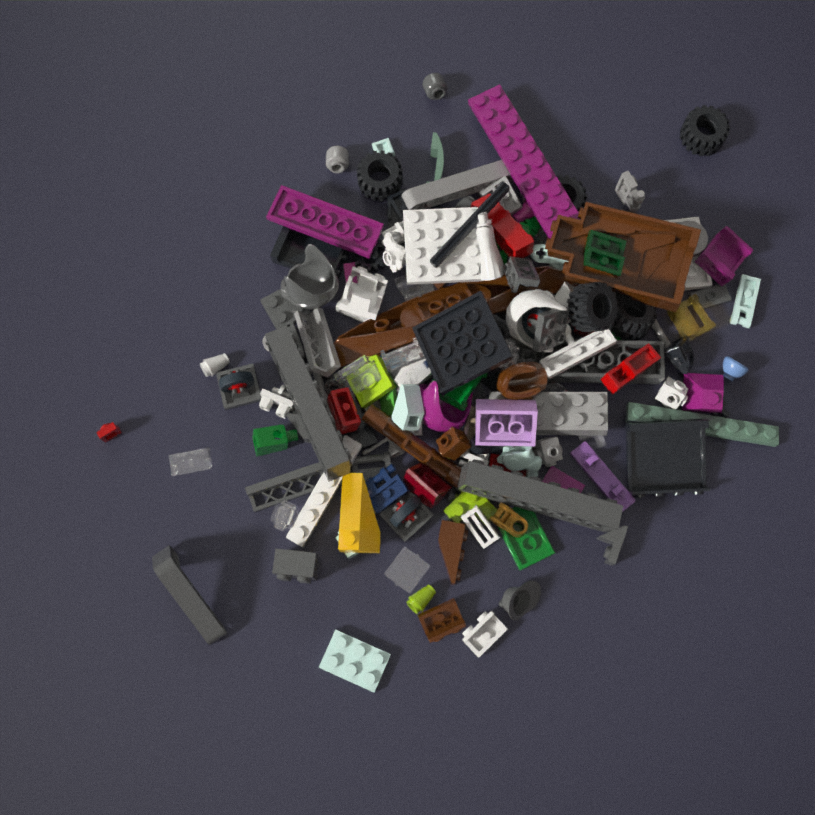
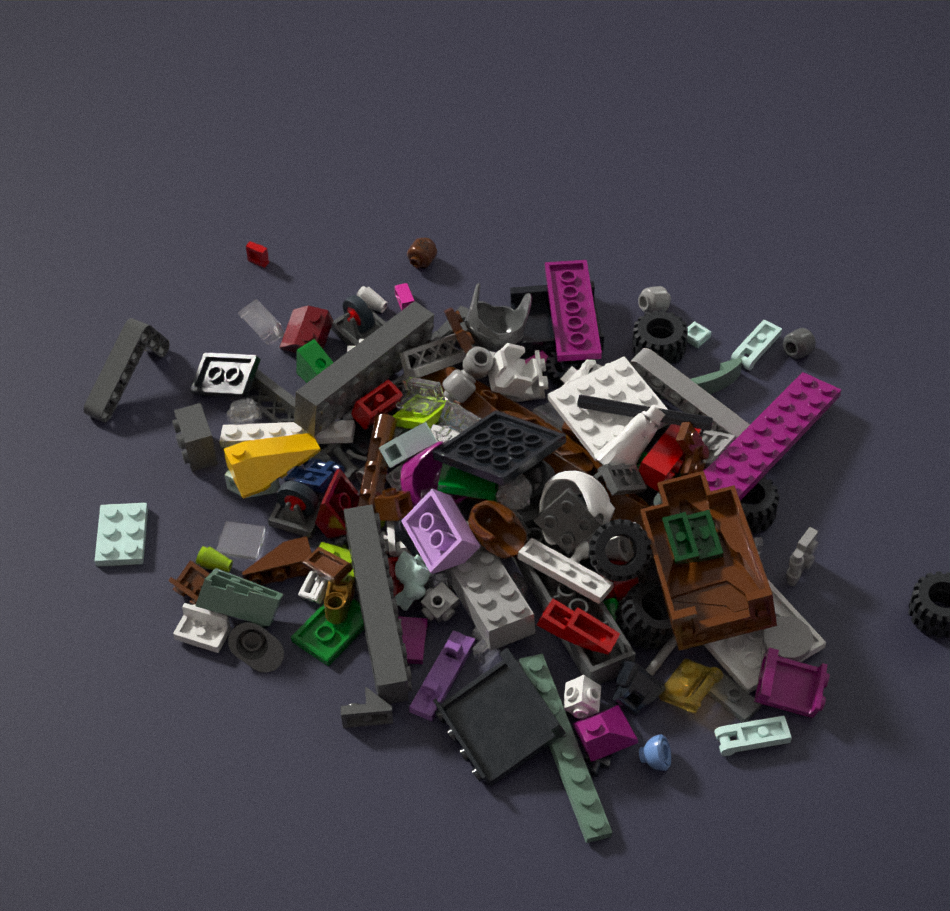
camera: 65 degrees right, 25 degrees down
(187, 302) = (422, 253): none -> reddish brown head
(224, 431) = (304, 326): none -> dark red slope
(225, 337) = (403, 295): none -> dark pink piece
(240, 514) = (225, 375): none -> plate
(313, 315) = (463, 337): none -> reddish brown plate
(348, 317) = (478, 362): none -> light grey head
(372, 342) = (459, 386): none -> light grey head
(418, 114) = (757, 343): none -> light aqua plate
(479, 596) = (239, 598): none -> sand green wedge
(483, 516) = (327, 565): none -> reddish brown tile
(513, 210) = (694, 449): none -> reddish brown plate

